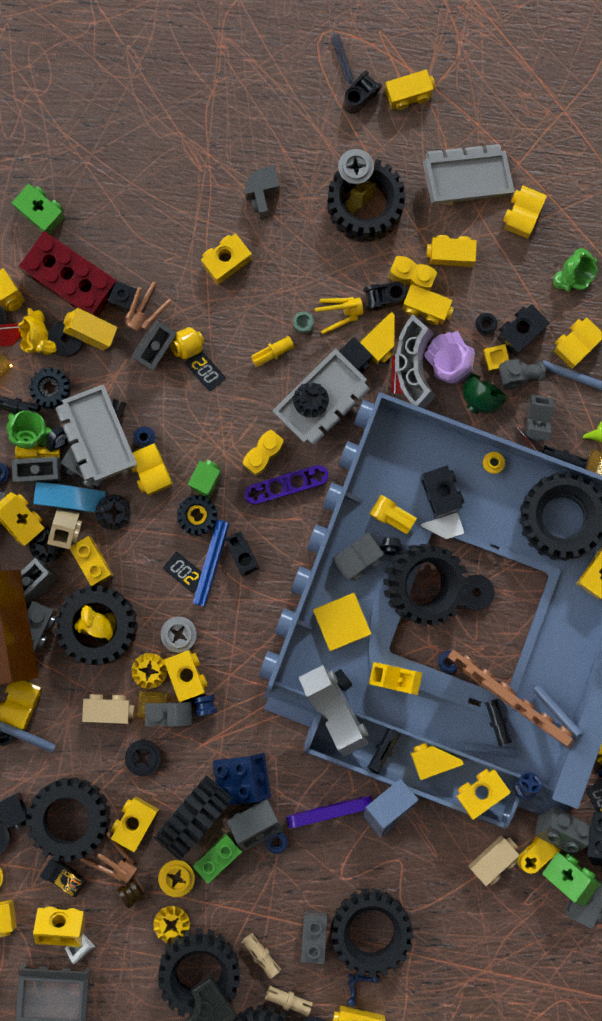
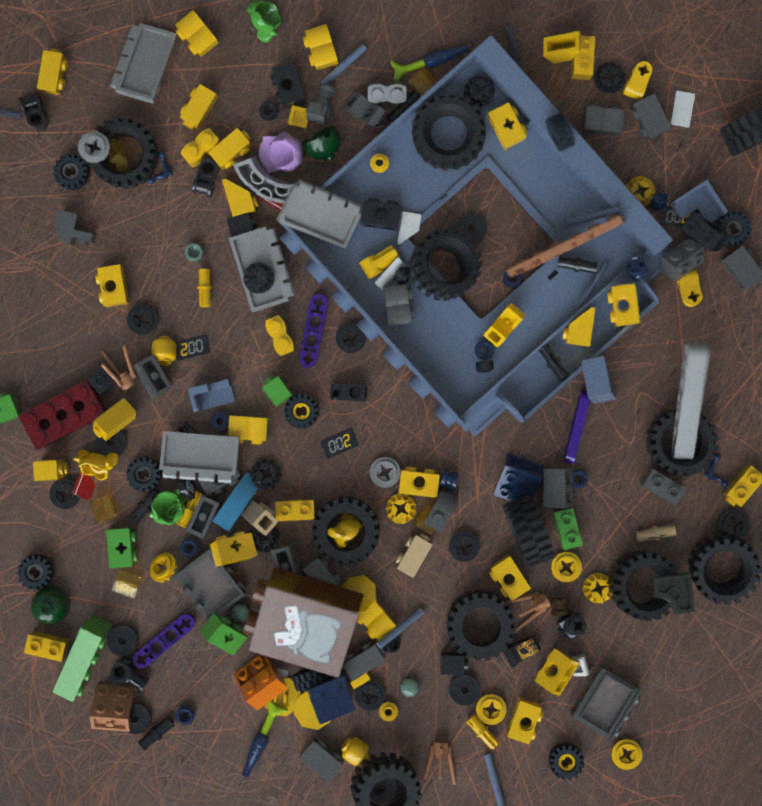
camera: 65 degrees left, 5 degrees up
(47, 672) = (365, 586): none -> yellow piece
(116, 916) = (571, 625): none -> black connector
(165, 414) = (211, 395): none -> sand blue panel
(200, 299) = (140, 310): none -> black gear
(211, 563) = (343, 419): blue axle -> none
(288, 1001) = (699, 529): tan pin -> none
(298, 516) = (347, 346): none -> black gear
(312, 167) = (68, 162): none -> black bush
(328, 698) = (491, 384): light grey brick -> none
(342, 622) = (440, 343): yellow tile -> none
(350, 306) = (201, 209): yellow plant -> none
(366, 671) = (488, 345): none -> dark blue plate
(369, 254) = (167, 172): none -> dark blue piece
(383, 531) = (388, 276): none -> white sticker
(407, 428) = (320, 215): none -> light grey hinge
(418, 917) = (689, 401): none -> light grey beam
(494, 860) = (677, 322): tan brick -> none
(568, 427) = (391, 91): none -> brick
(578, 888) = (731, 271): bright green brick -> none

